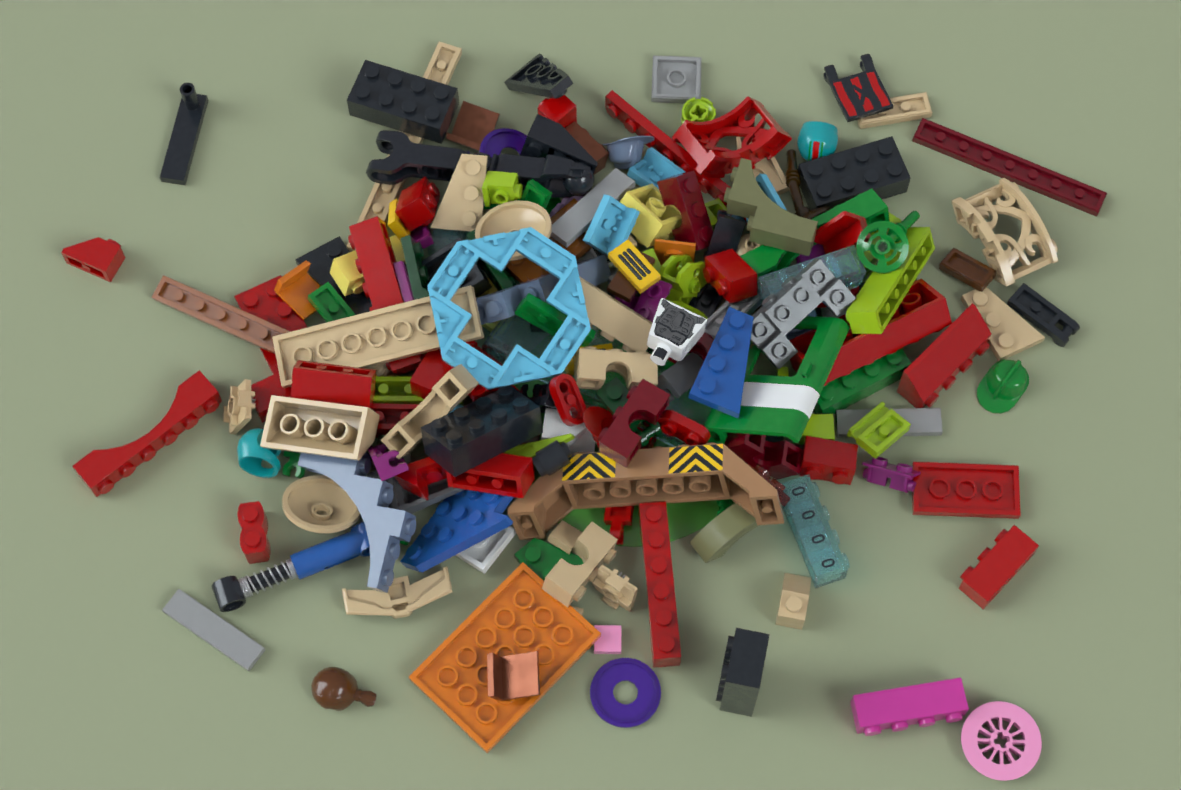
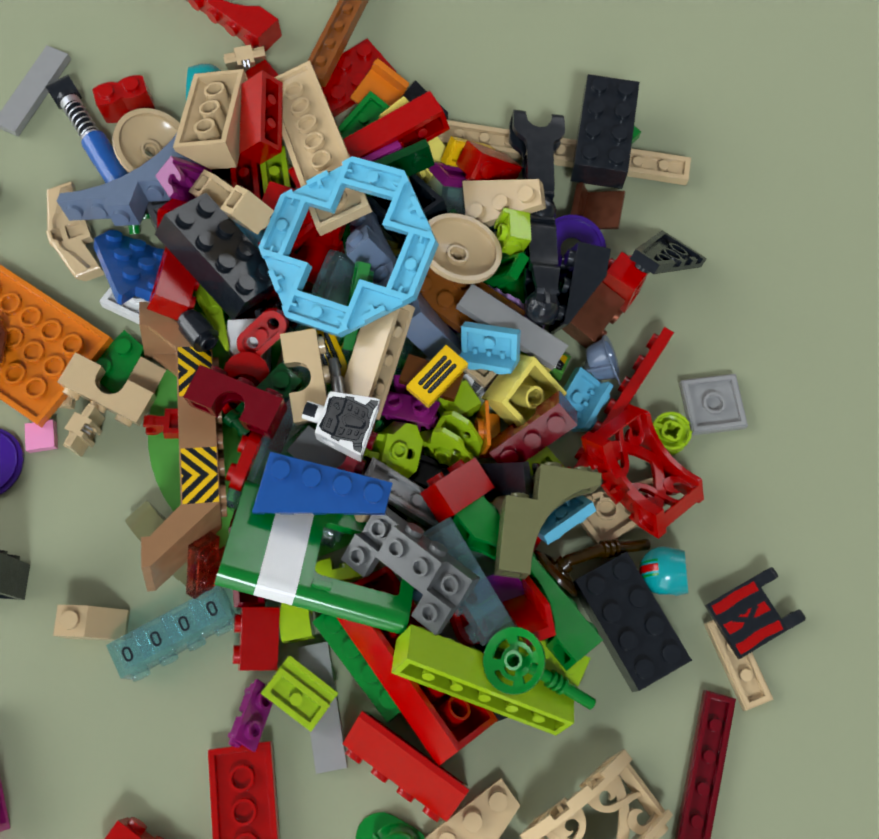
camera: 80 degrees right, 5 degrees up
(628, 346) = (337, 380): none -> flat silver pin
(660, 584) = (50, 485): red arch -> none
(967, 269) = (536, 781): reddish brown tile -> none

